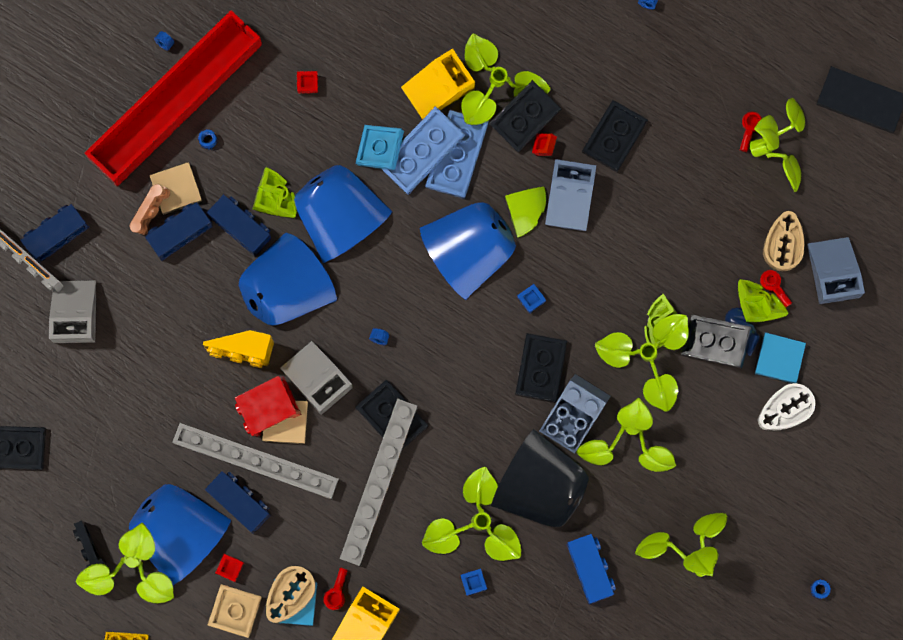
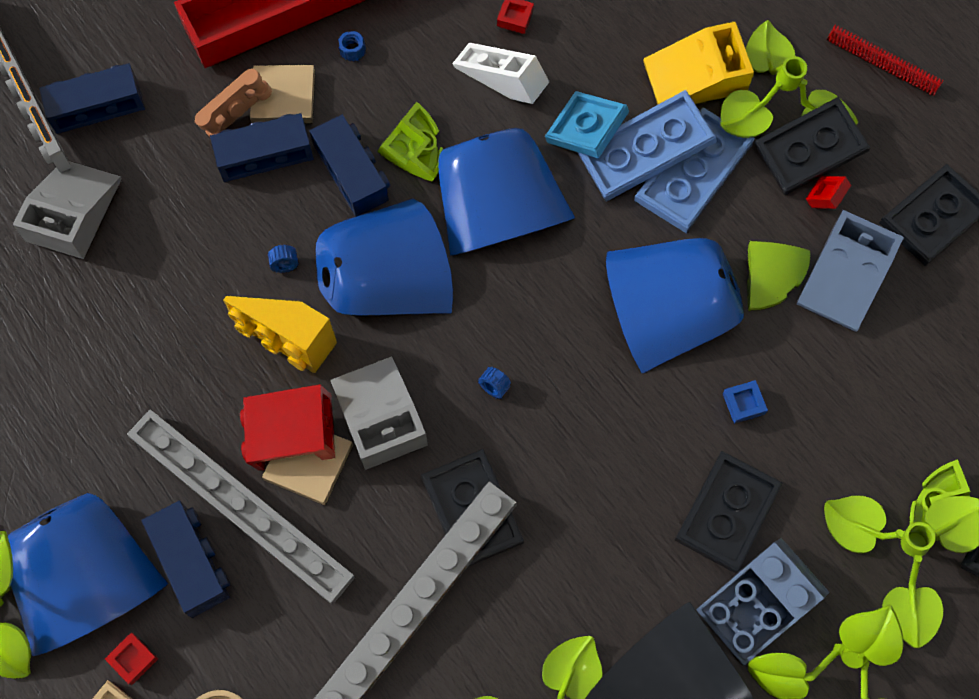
camera: 20 degrees right, 10 degrees down
(221, 301) = (283, 258): none -> blue axle
(313, 127) = (505, 71): none -> white slope
(553, 36) = (879, 57): none -> red axle

